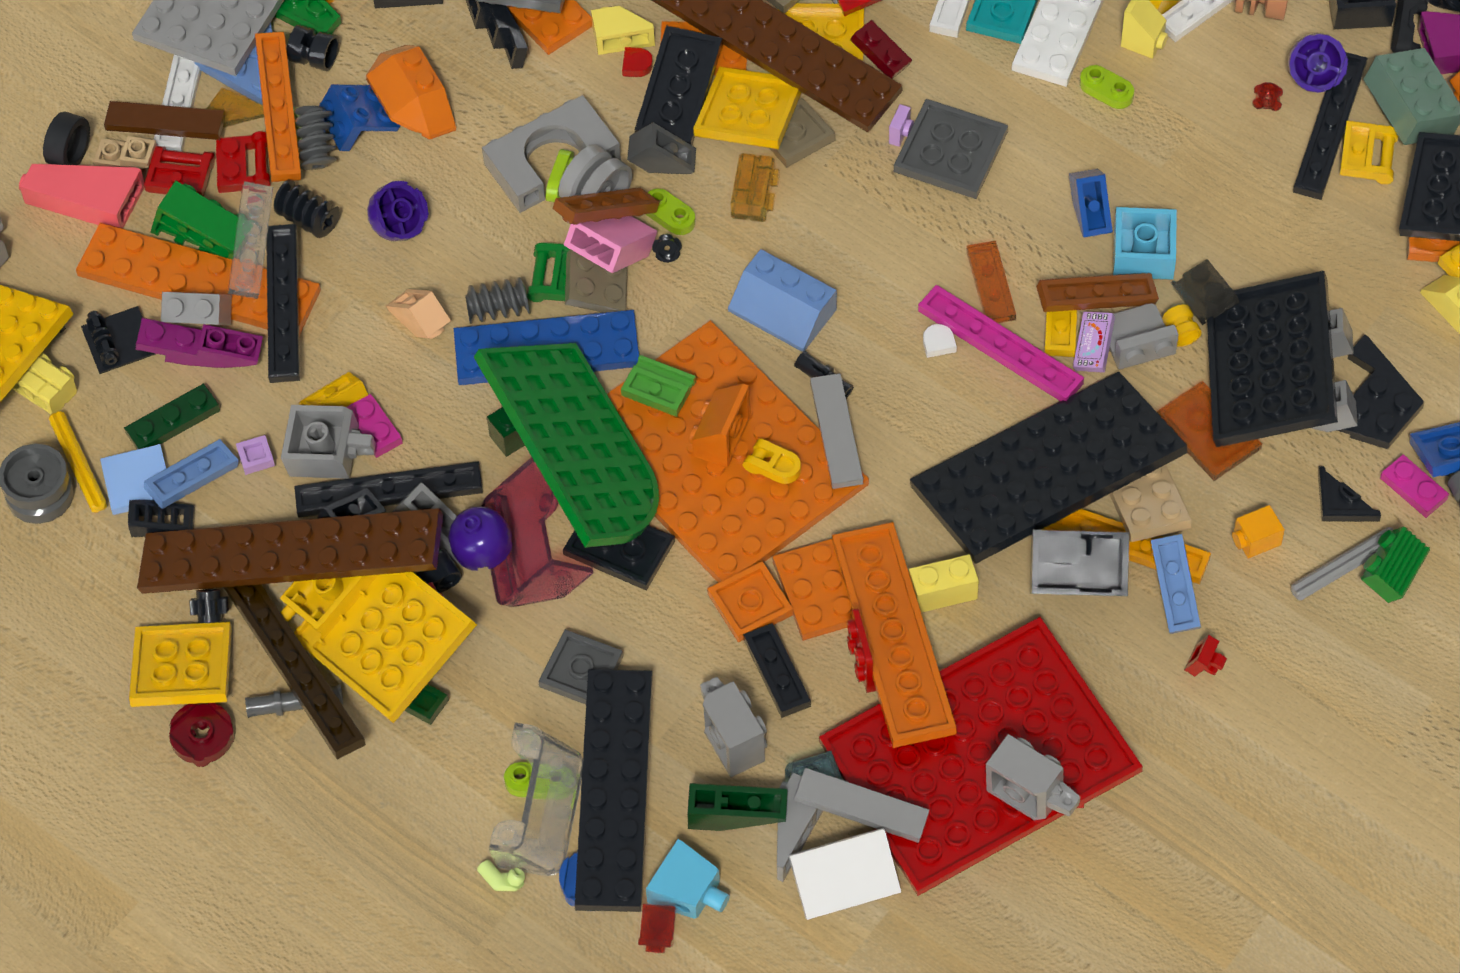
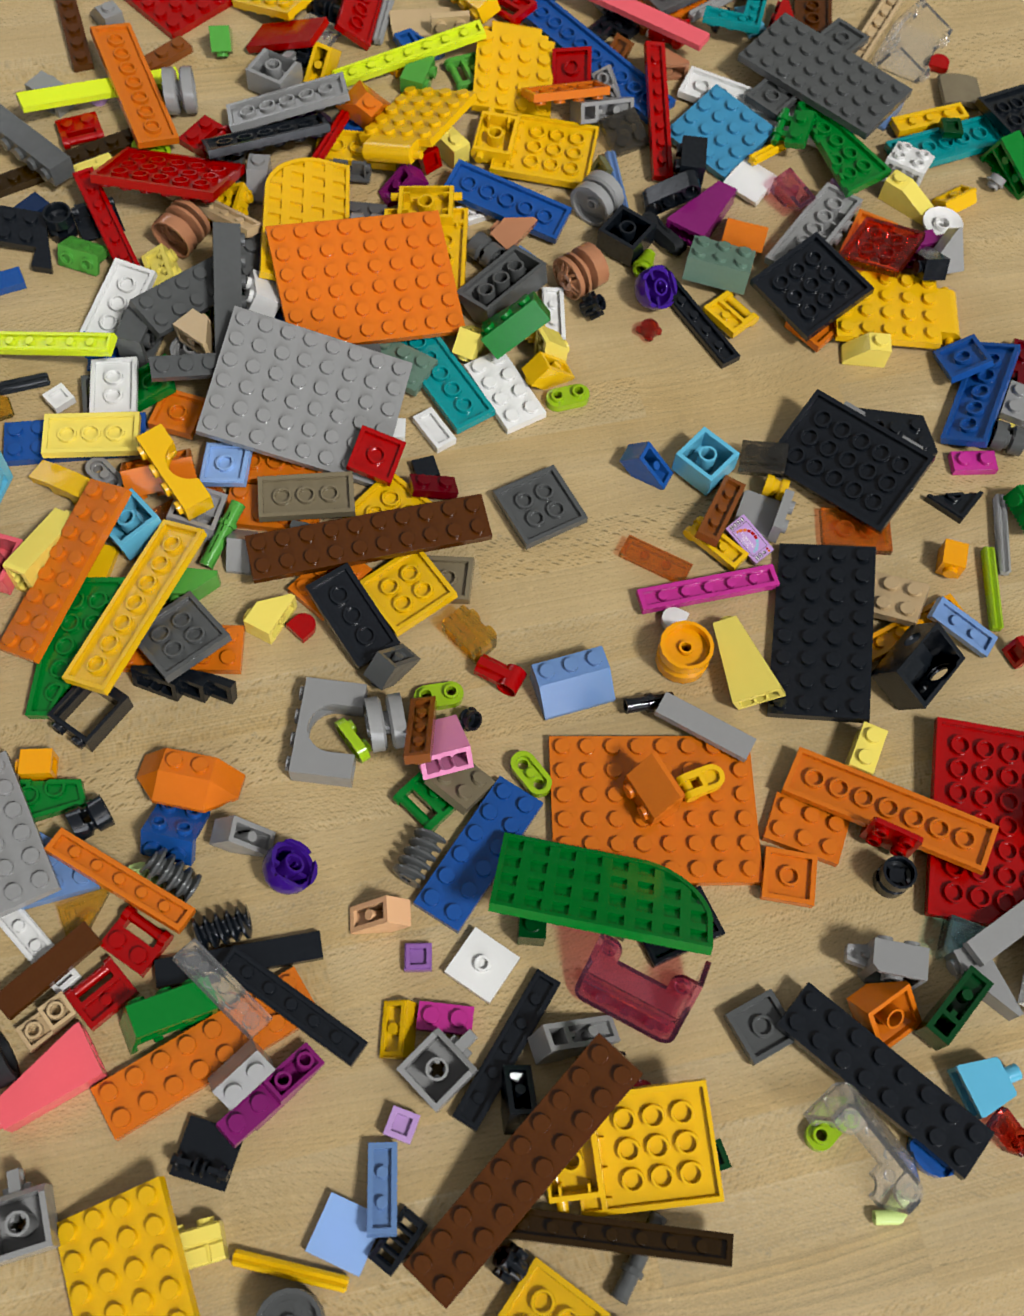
camera: 60 degrees left, 5 degrees up
(172, 418) = (314, 1165): dark green plate -> none
(312, 258) = (269, 953): none -> black tile
(395, 160) = (241, 836): none -> light grey slope
(409, 369) = (418, 957): none -> medium lavender tile
(444, 420) = (482, 965): none -> white plate
(480, 538) = (618, 1017): dark purple cylinder -> none
(657, 334) = (532, 774): none -> lime plate
(658, 385) = (583, 806): bright green plate -> none
(681, 756) = (886, 1010): none -> orange slope
(736, 245) = (505, 677): none -> red piece
(777, 670) = (855, 900): black plate -> none
(829, 684) = (894, 876): none -> black wheel
(900, 125) = (499, 519): lavender plate -> none
(901, 31) = (425, 466): none -> black tile
(902, 364) = (684, 652): none -> light orange wheel
(938, 422) = (745, 668): none -> light yellow slope
(1115, 47) = (546, 371): none -> yellow slope
(1233, 23) = (592, 305): none -> black gear
(1263, 592) = (992, 590): none -> lime axle
(1351, 35) = (644, 261): none -> lime cone

